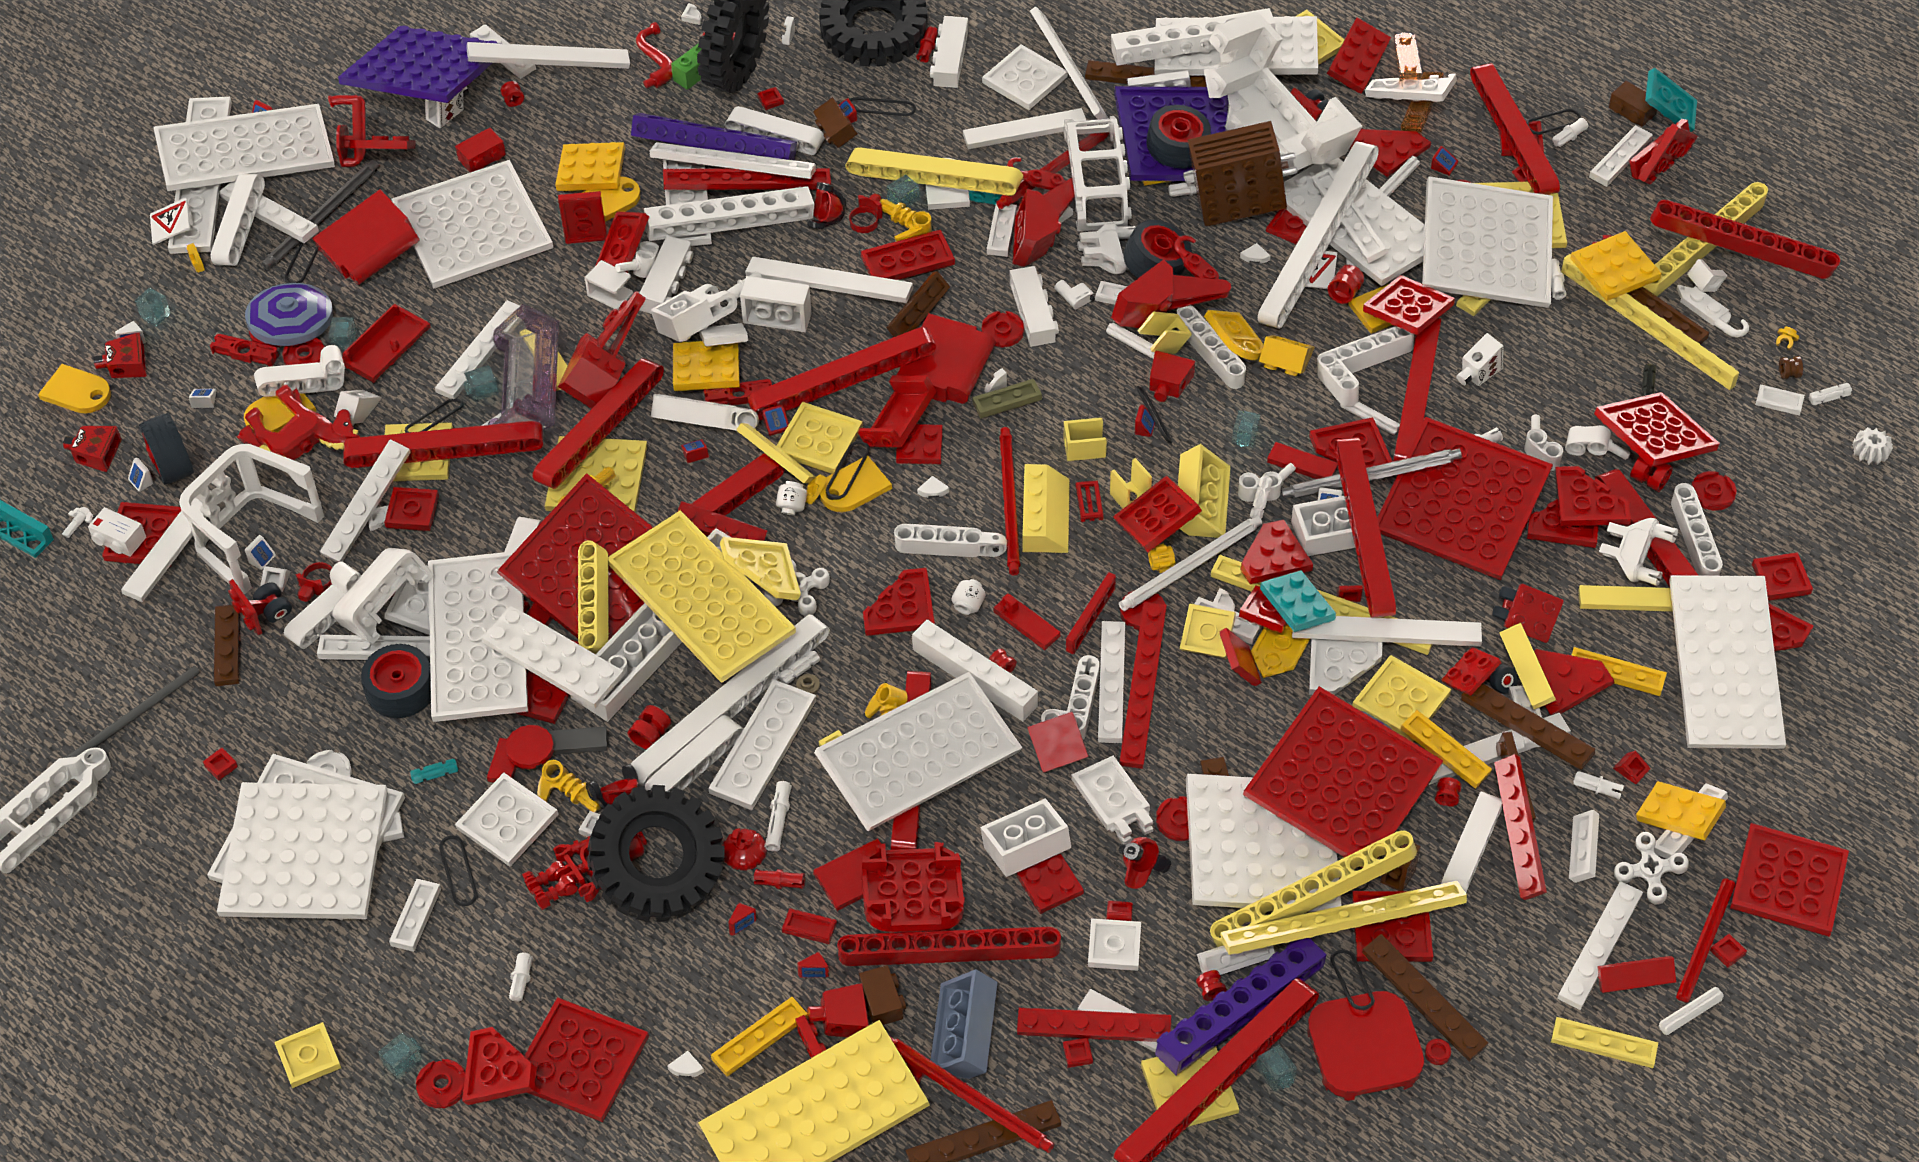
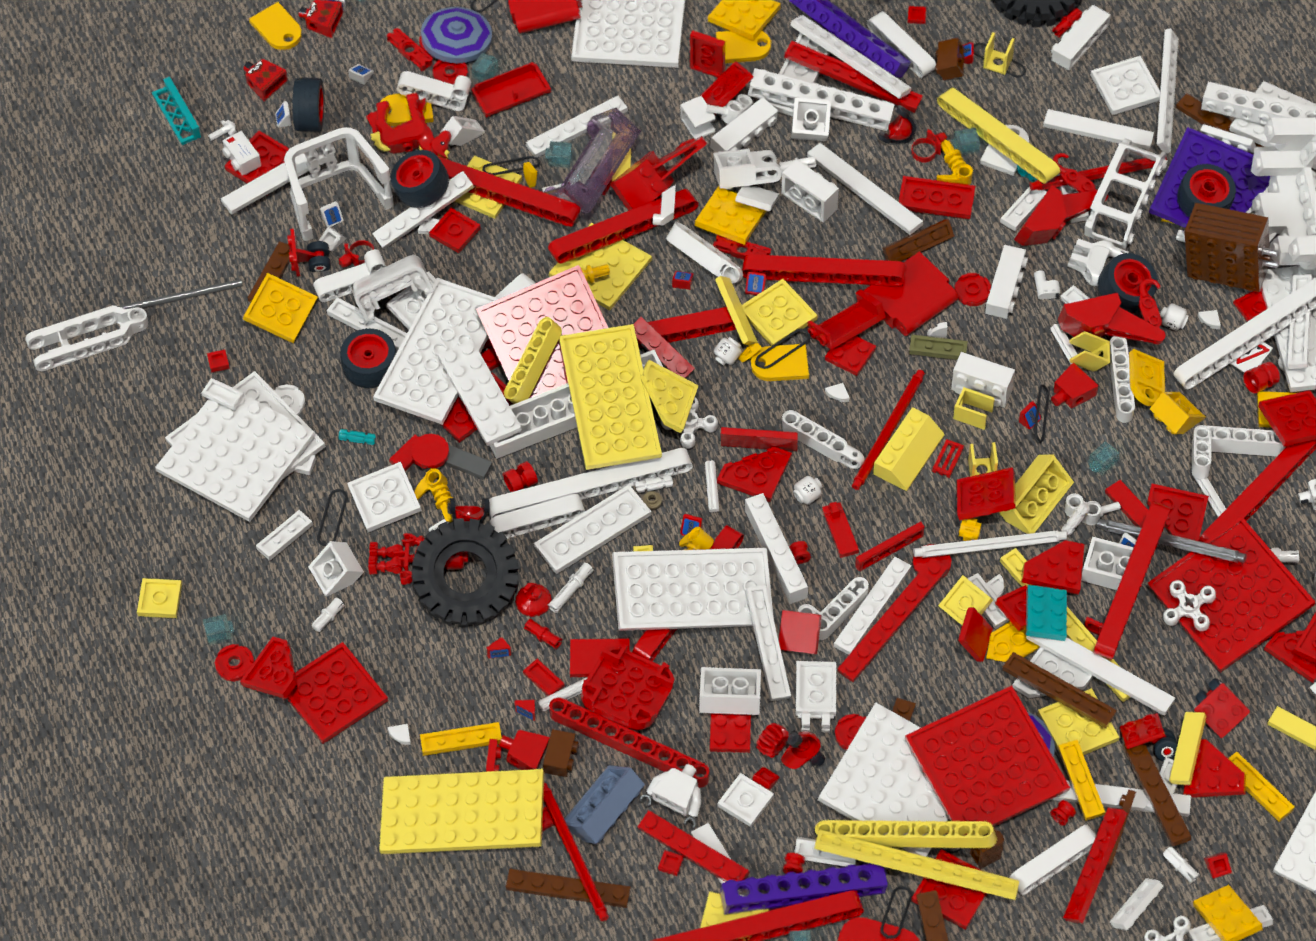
camera: 30 degrees right, 5 degrees up
(253, 793) = (222, 394): none -> white tile
(261, 674) = (280, 308): none -> yellow plate
(346, 467) = (419, 178): none -> black wheel
(460, 416) = (530, 174): none -> yellow tile
(498, 922) = (335, 568): none -> white slope
(637, 382) = (667, 207): none -> white piece
(731, 236) = (811, 119): none -> white slope
(846, 928) = (565, 693): none -> white axle
(862, 641) = (712, 490): none -> white axle
(866, 689) = (690, 522): none -> slope
(885, 568) = (758, 439): none -> red tile
(890, 102) = (991, 54): none -> light yellow piece
(1032, 768) = (768, 643): none -> white plate
(1040, 970) = (677, 791): none -> white torso
(1076, 402) = (983, 377): none -> white brick
(1103, 866) = (772, 740): none -> red gear
(1224, 265) = (1174, 317): none -> white head
(1363, 670) = (1059, 690): none -> reddish brown plate
(1444, 509) = (1187, 611): none -> white gear

